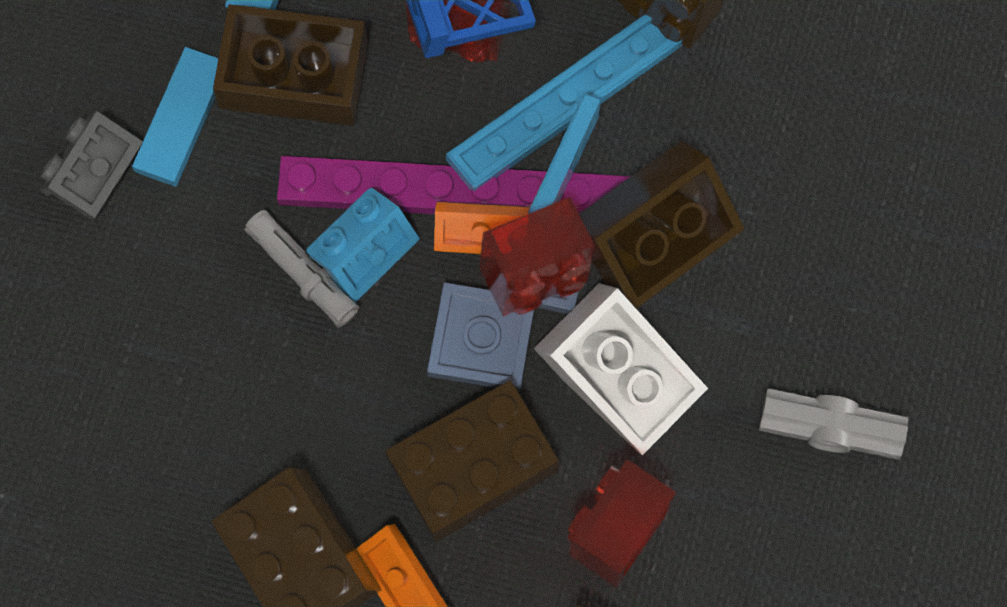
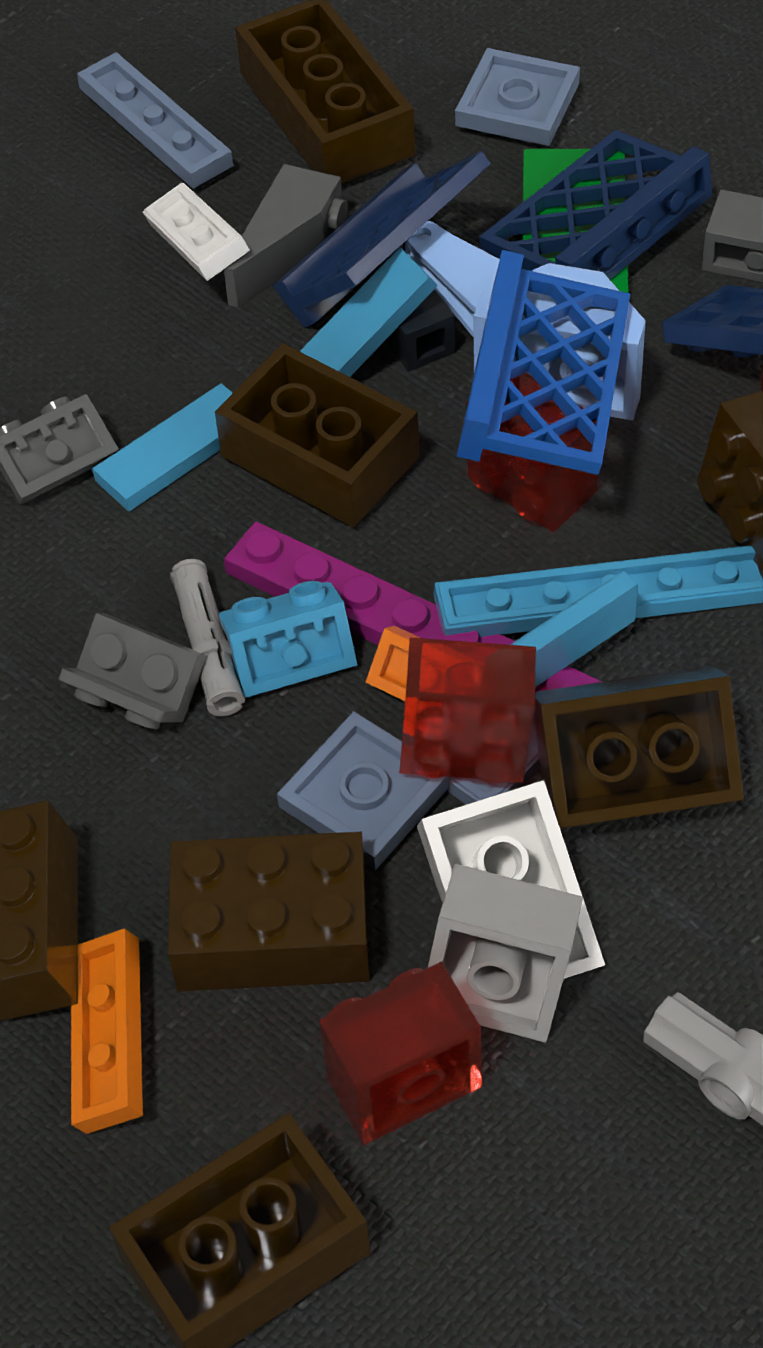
camera: 30 degrees right, 20 degrees down
(270, 325) = (136, 672): none -> dark grey bracket
(647, 417) = (506, 948): none -> light grey slope

